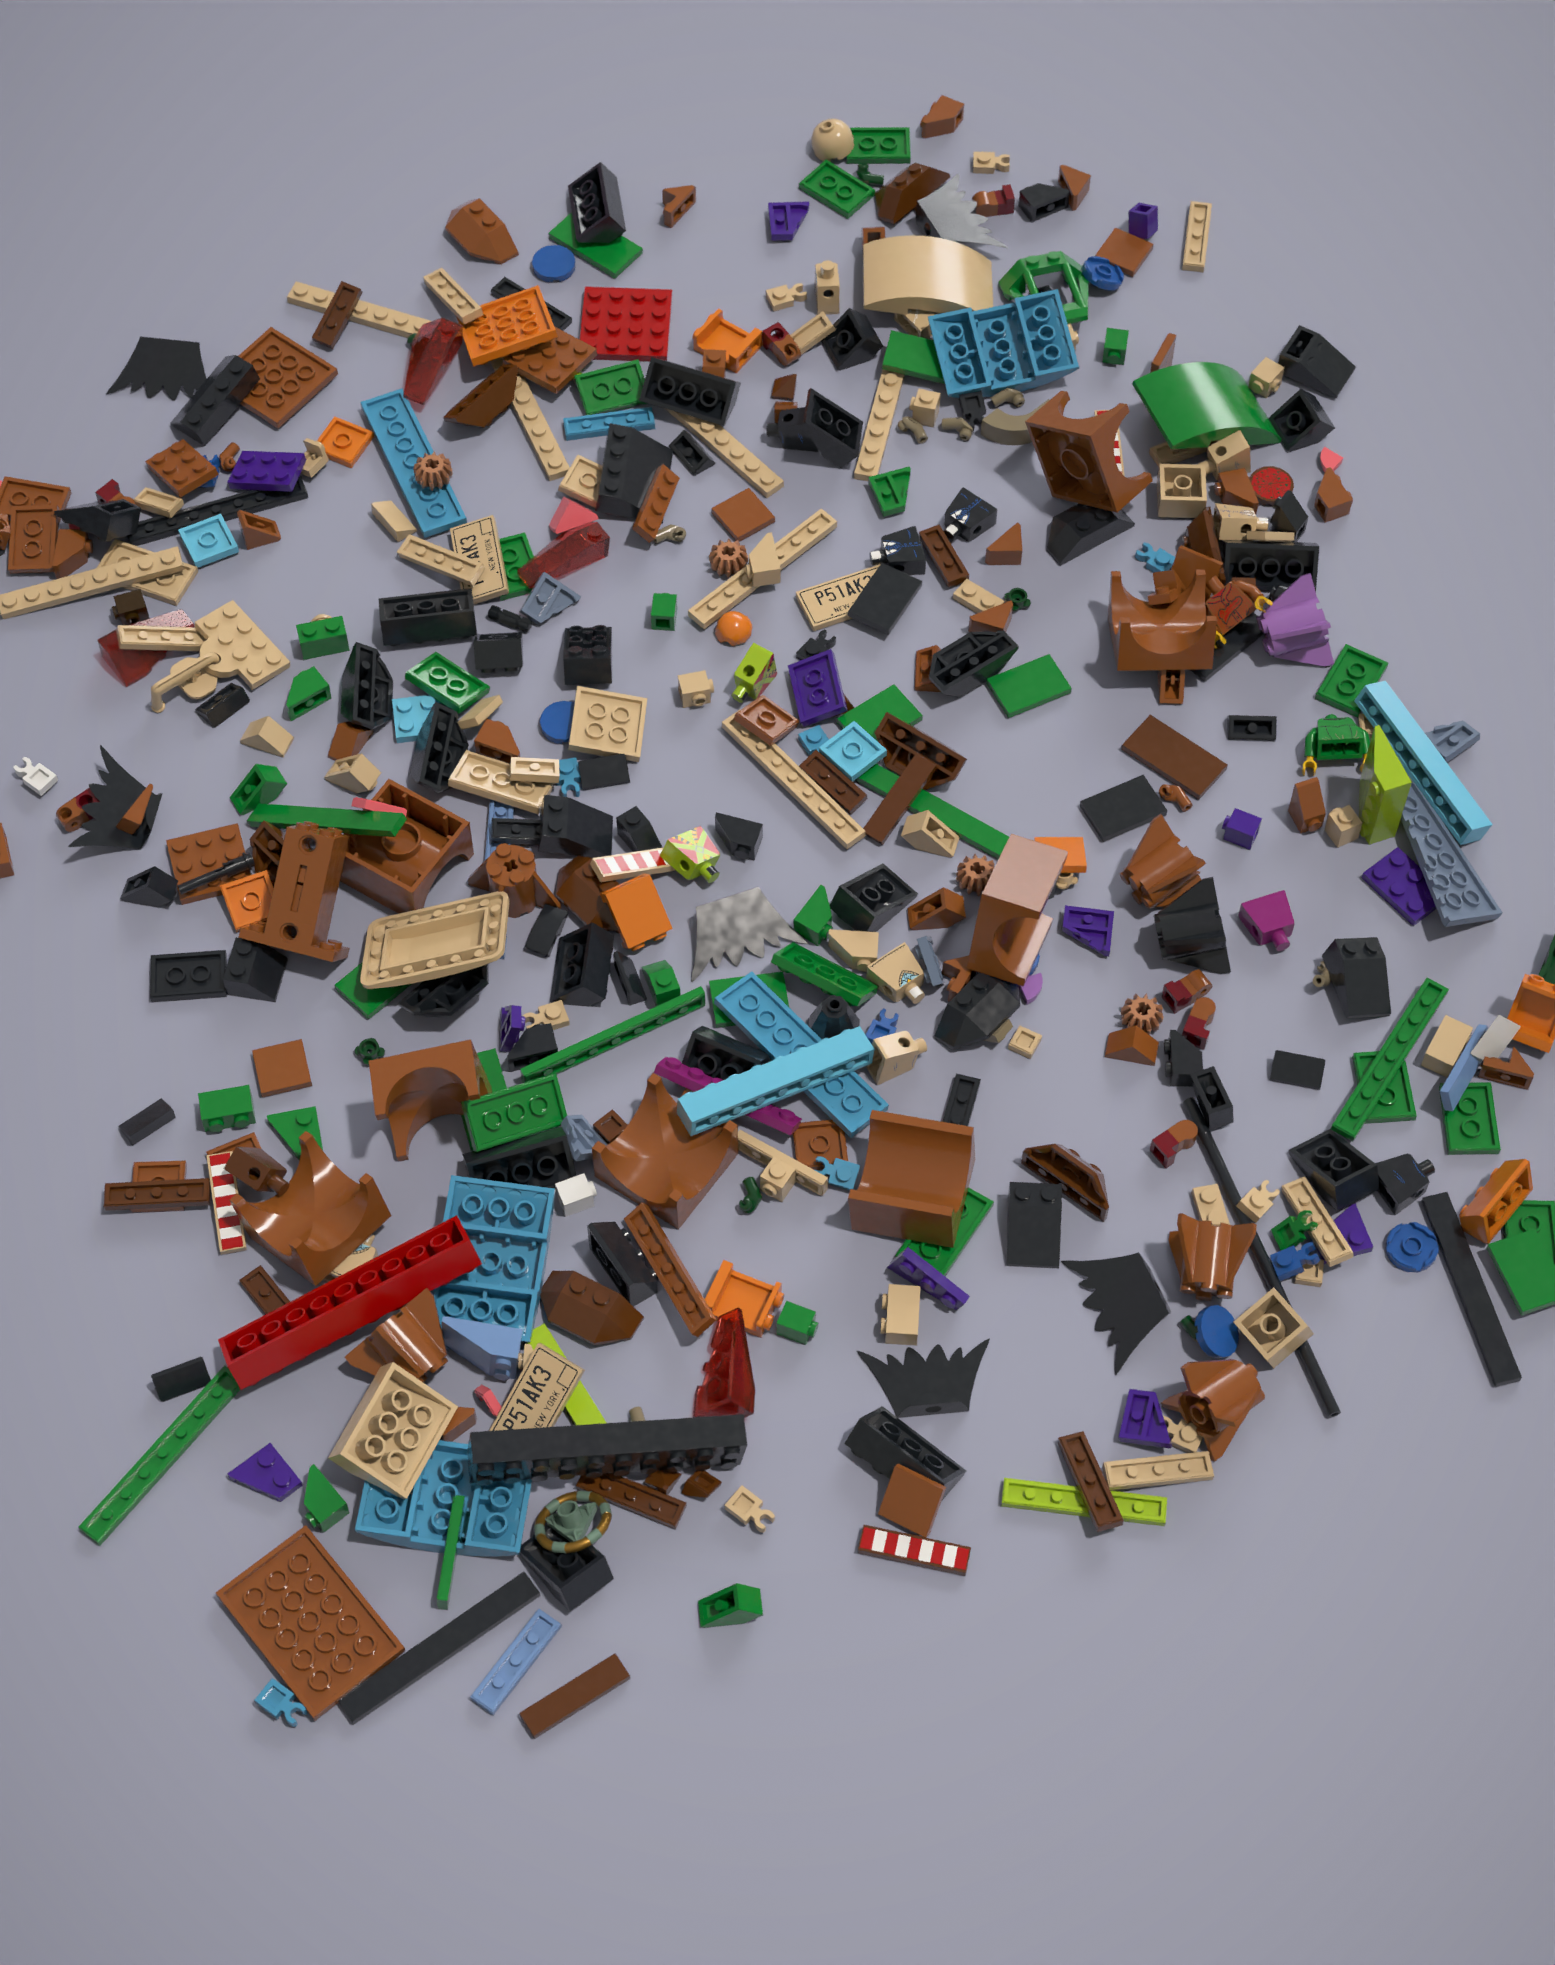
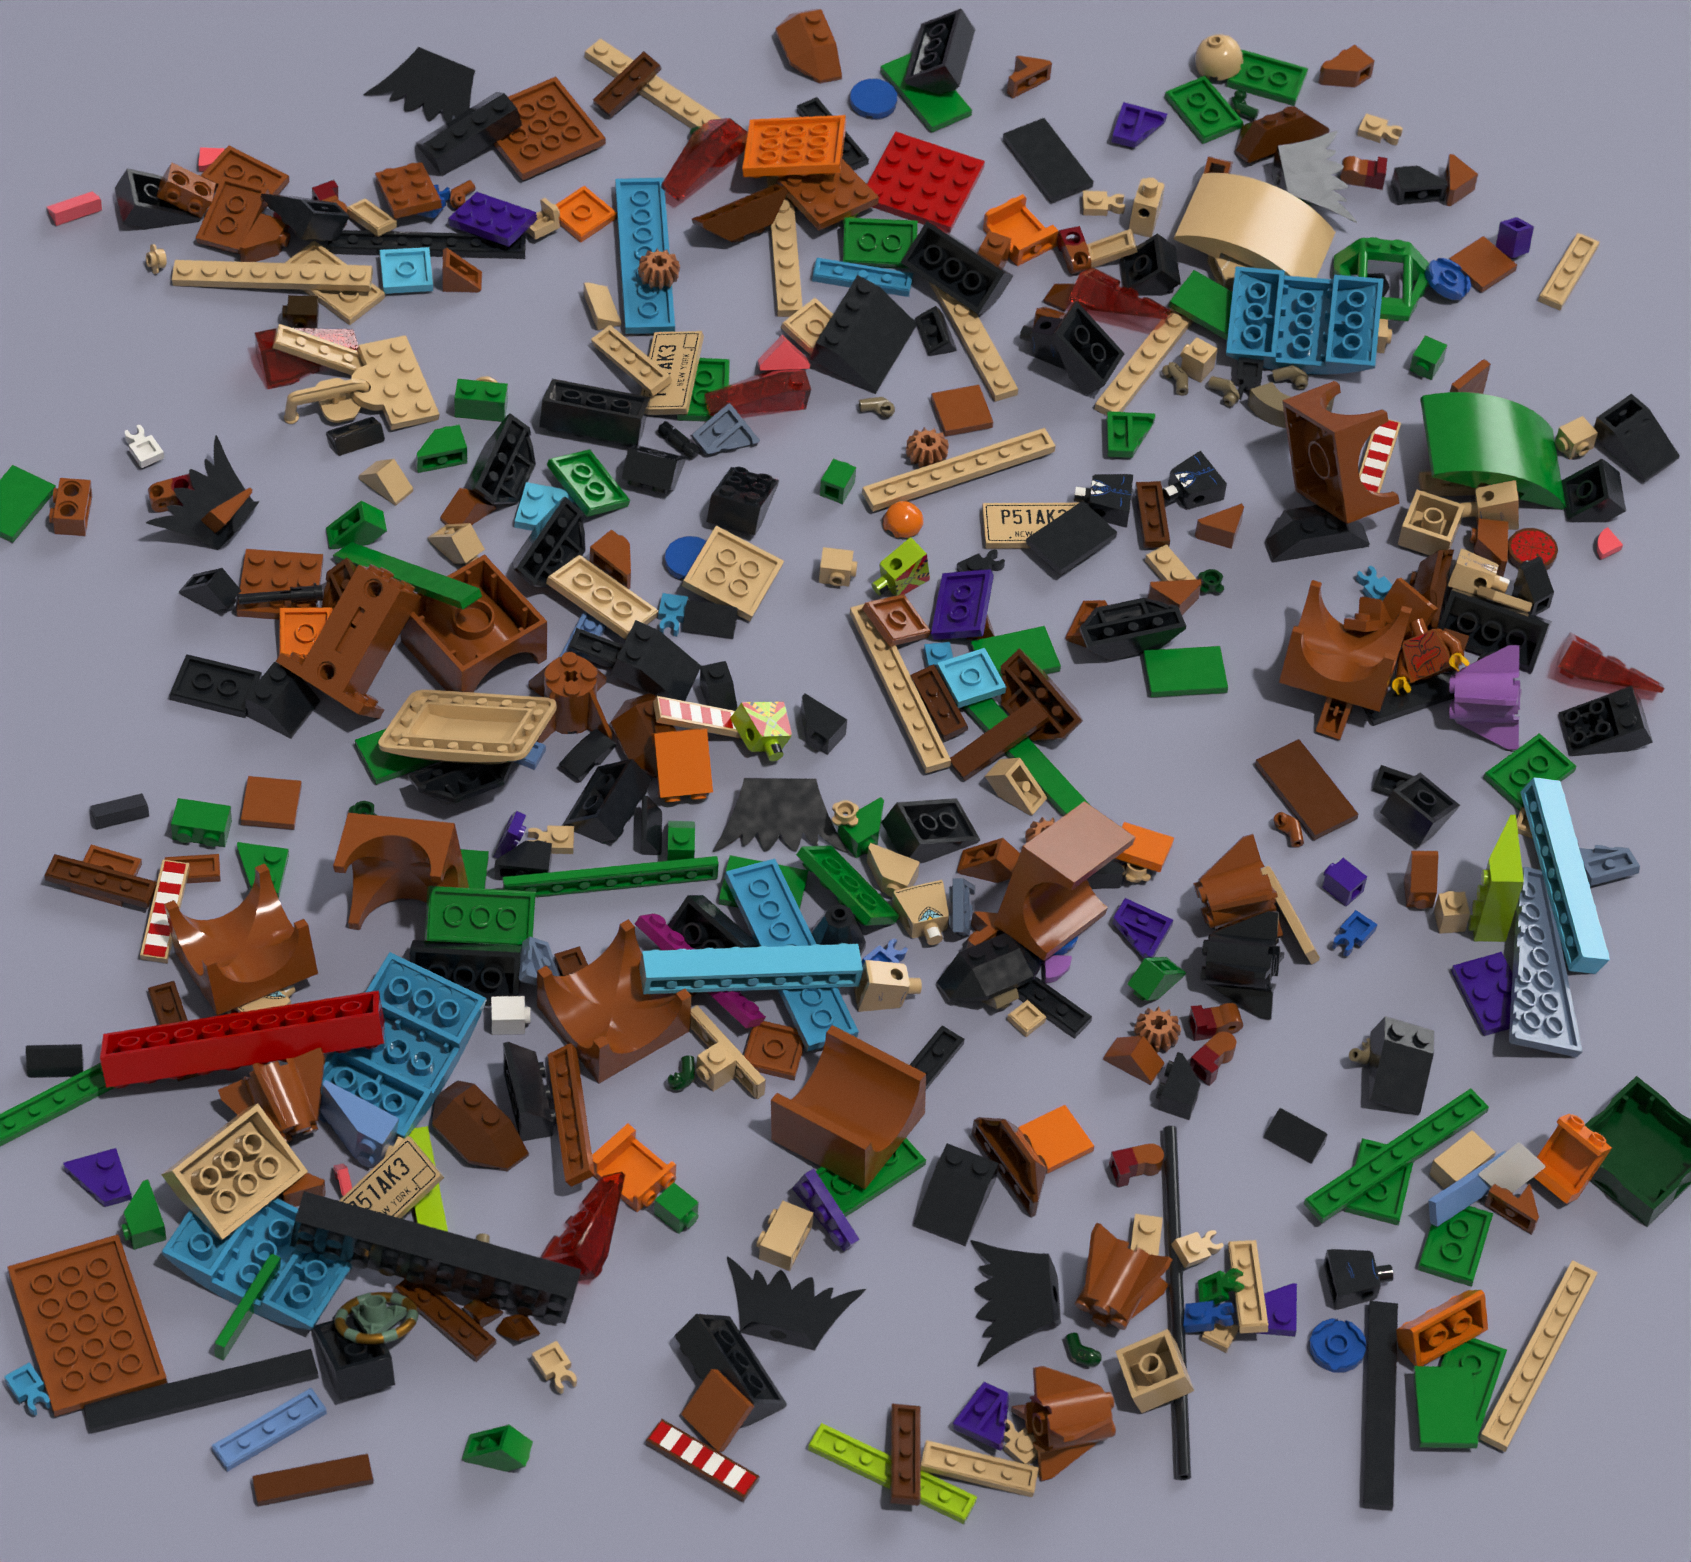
camera: 15 degrees right, 5 degrees down
(257, 1170) = (210, 896): reddish brown torso -> none
(371, 805) = (456, 574): coral tile -> none
(453, 296) = (753, 100): tan plate -> none
(480, 712) = (608, 521): tan tile -> none
(534, 770) = (639, 594): tan plate -> none
(655, 503) = (874, 370): dark orange plate -> none
(724, 272) = (1048, 160): none -> black tile
(764, 563) = (958, 463): tan slope -> none
(797, 904) = (845, 807): none -> tan plate
(823, 376) = (1102, 293): none -> clear red wedge
(841, 1173) = (782, 1080): dark azure plate -> none
(1046, 1023) = (1055, 1007): none -> black tile
(1097, 1141) = (1057, 1138): none -> orange tile
(1120, 969) = (1155, 978): none -> green slope
(1123, 808) = (1225, 821): black tile -> none
(1212, 1098) = (1191, 1132): black slope -> none
(1217, 1331) = (1095, 1356): blue tile -> none
(1220, 882) = (1292, 917): none -> tan tile
(1268, 919) = (1331, 979): magenta torso -> none
(1269, 870) = (1355, 930): none -> blue plate
(1277, 743) = (1419, 808): none -> black slope
(1332, 498) = (1590, 581): dark orange slope -> none
(1335, 740) = (1475, 823): green torso -> none
(1336, 1169) = (1291, 1244): black slope -> none
(1360, 570) = (1588, 663): none -> clear red wedge
(1397, 618) = (1606, 724): none -> black slope

